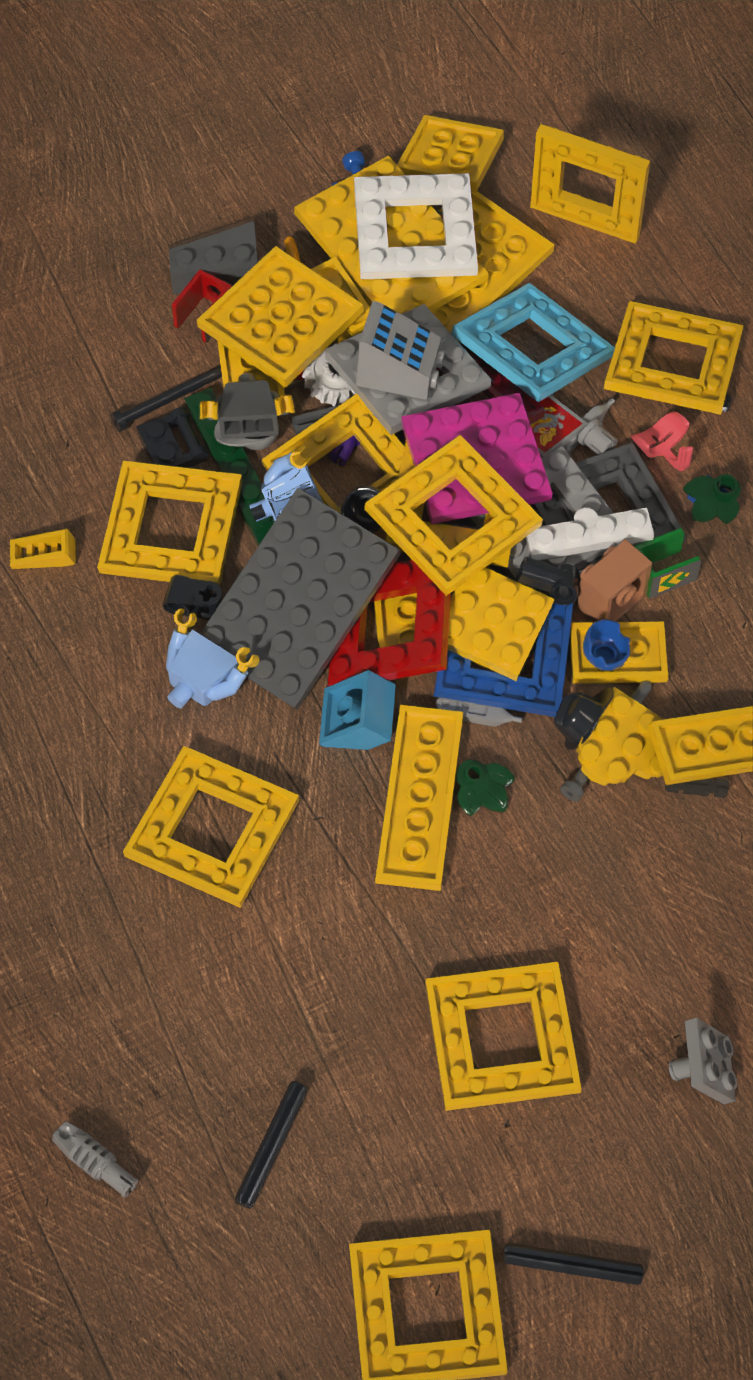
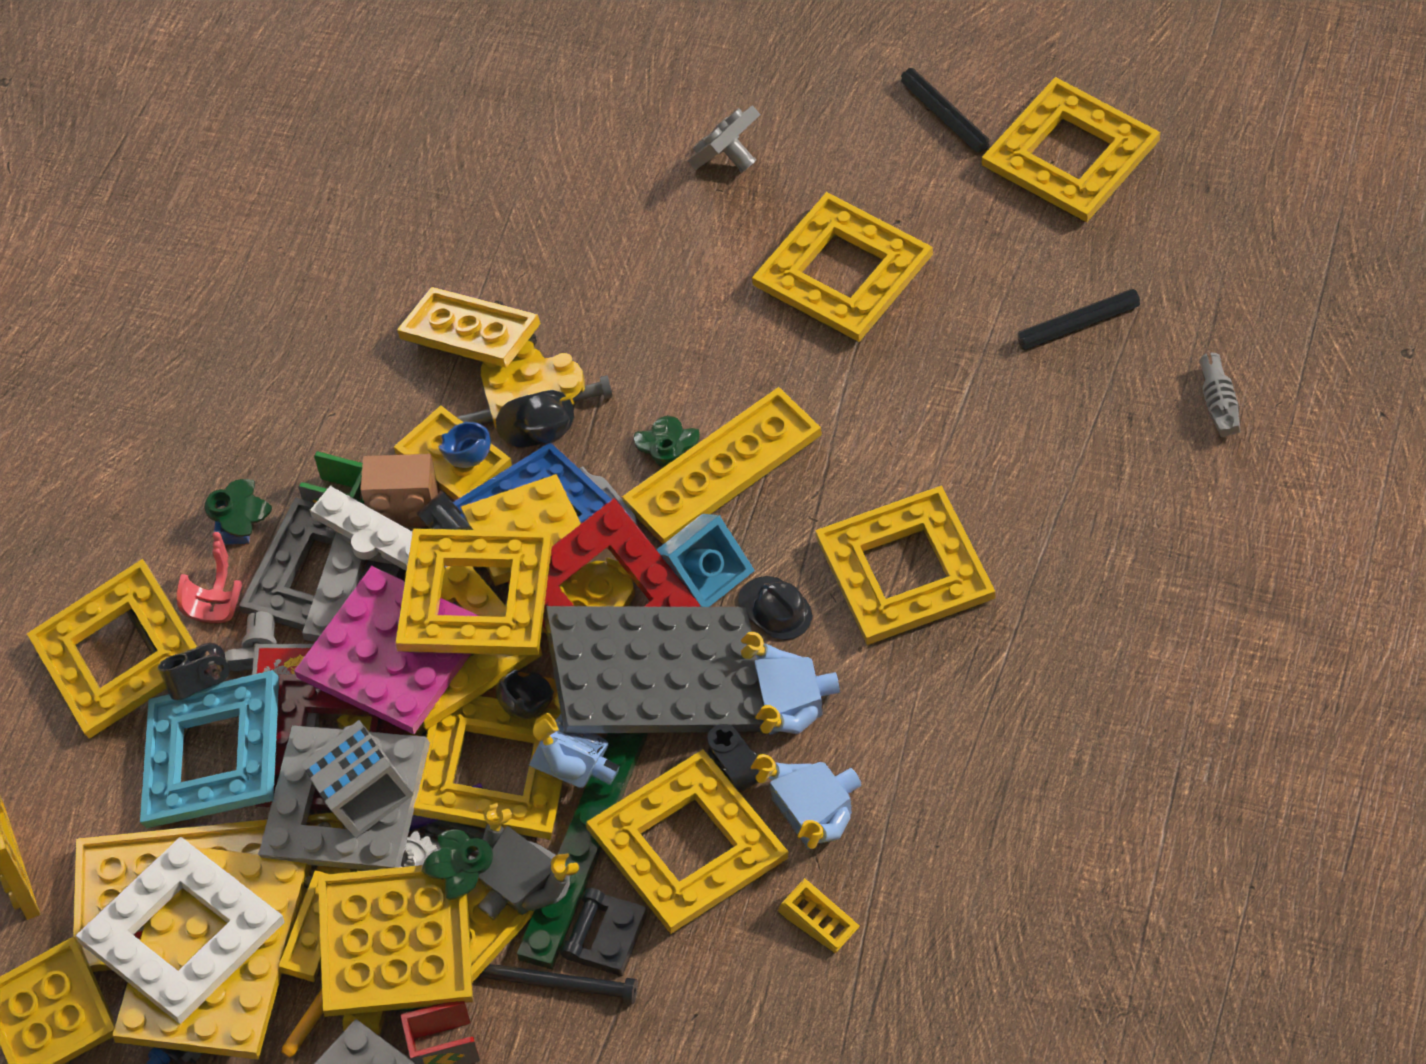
camera: 130 degrees left, 5 degrees down
(113, 609) = (810, 797): none -> light blue torso
(278, 730) = (776, 607): none -> black piece
(283, 372) = (453, 862): none -> dark green plate
(597, 365) = (190, 671): none -> black piece

